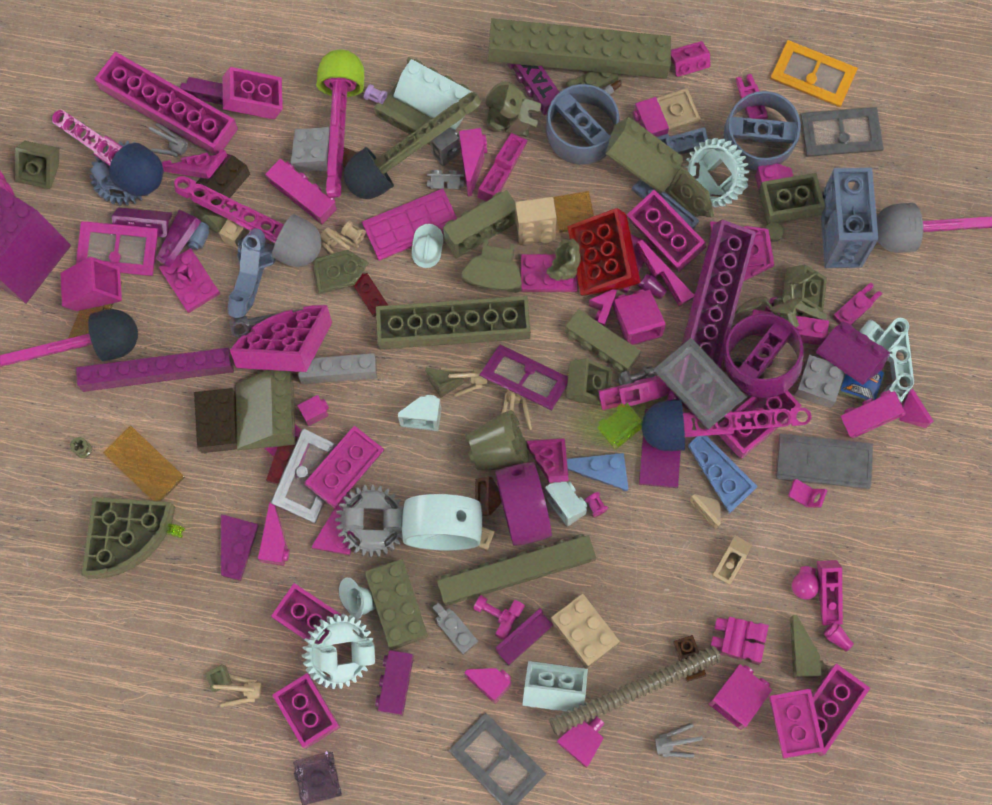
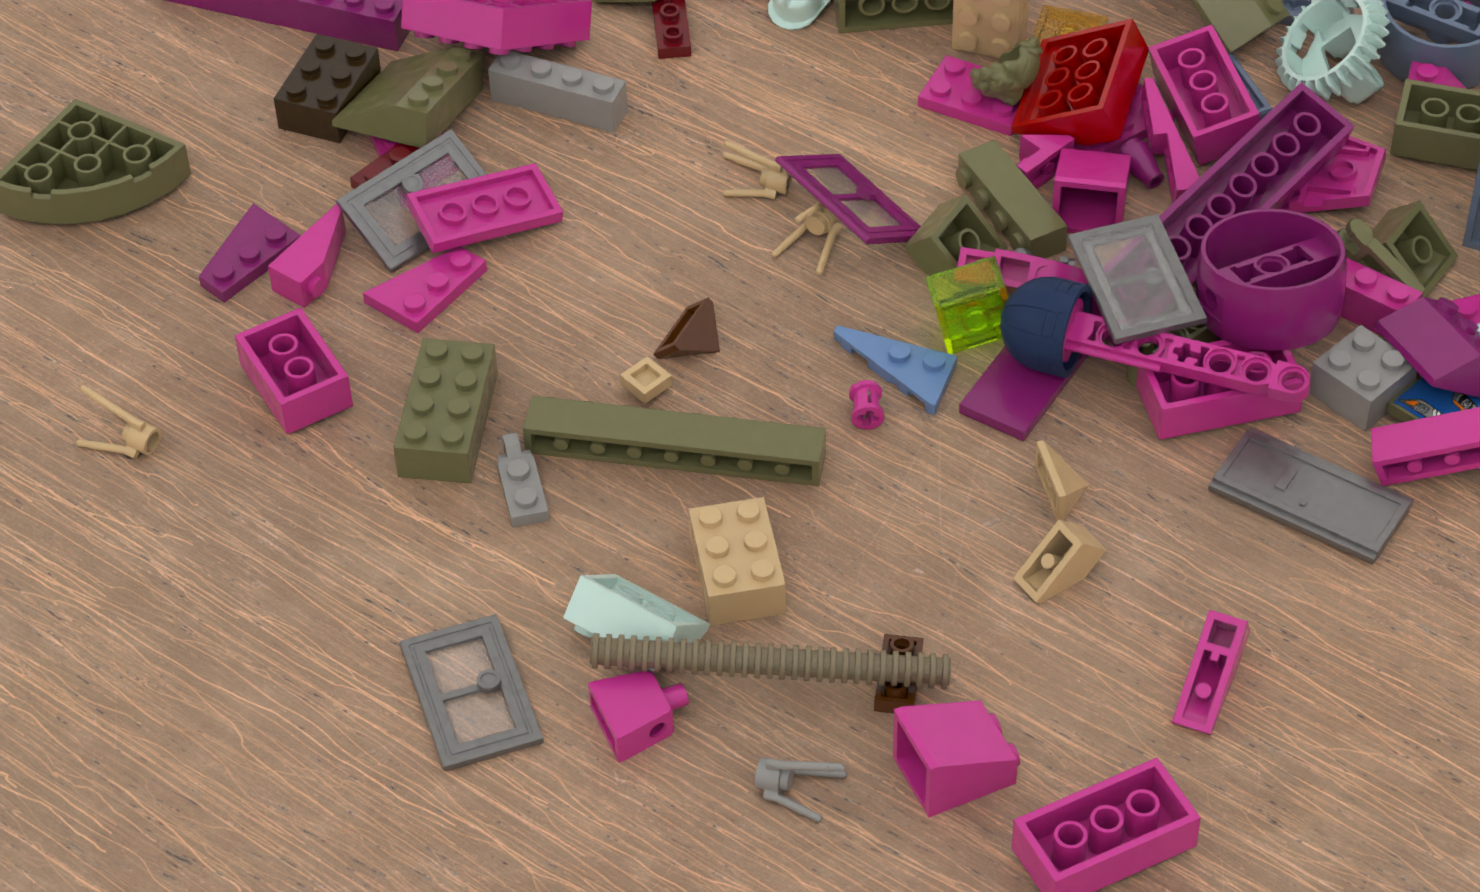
camera: 25 degrees right, 25 degrees down
(81, 453) = (104, 51): olive bush -> none
(143, 464) = (183, 105): clear yellow tile -> none
(175, 530) = (169, 197): clear neon green bush -> none
(218, 676) = (89, 409): olive plate -> none
(306, 711) = (204, 488): dark pink brick -> none
(313, 410) = (485, 127): dark pink brick -> none
(317, 778) = (158, 589): clear purple slope -> none
(324, 655) = (291, 450): light aqua piece -> none
(353, 518) = (515, 291): light grey piece -> none
(355, 599) = (387, 377): light aqua piece -> none
(394, 683) = (373, 512): magenta brick -> none
(422, 414) = (650, 181): light aqua slope -> none
(441, 381) = (718, 165): olive slope -> none
(442, 522) = (566, 331): light aqua cylinder -> none
(453, 322) = (780, 93): olive brick -> none
(490, 682) = (529, 559): dark pink slope -> none
(494, 269) = (886, 42): olive piece -> none
(498, 443) = (752, 256): olive cone -> none
(505, 618) = (613, 494): dark pink bar -> none
(523, 503) = (736, 330): magenta cylinder -> none
(523, 637) = (627, 530): magenta panel -> none
(551, 458) = (829, 310): dark pink wing -> none
(565, 501) = (815, 376): light aqua slope -> none
(690, 194) = (1274, 60): olive tile -> none
(723, 474) = (1114, 445): medium blue wing -> none
(734, 638) = (1008, 675): dark pink hips -> none
(775, 231) = (1398, 167): olive tile -> none
(788, 309) = (1390, 204): olive plant -> none
(796, 723) = (1027, 806): dark pink plate -> none
(804, 654) = (1110, 739): olive slope -> none
(805, 494) = (1243, 519): dark pink bracket -> none
(805, 584) = (1172, 643): dark pink piece -> none
(836, 635) = (1189, 742): dark pink cone -> none

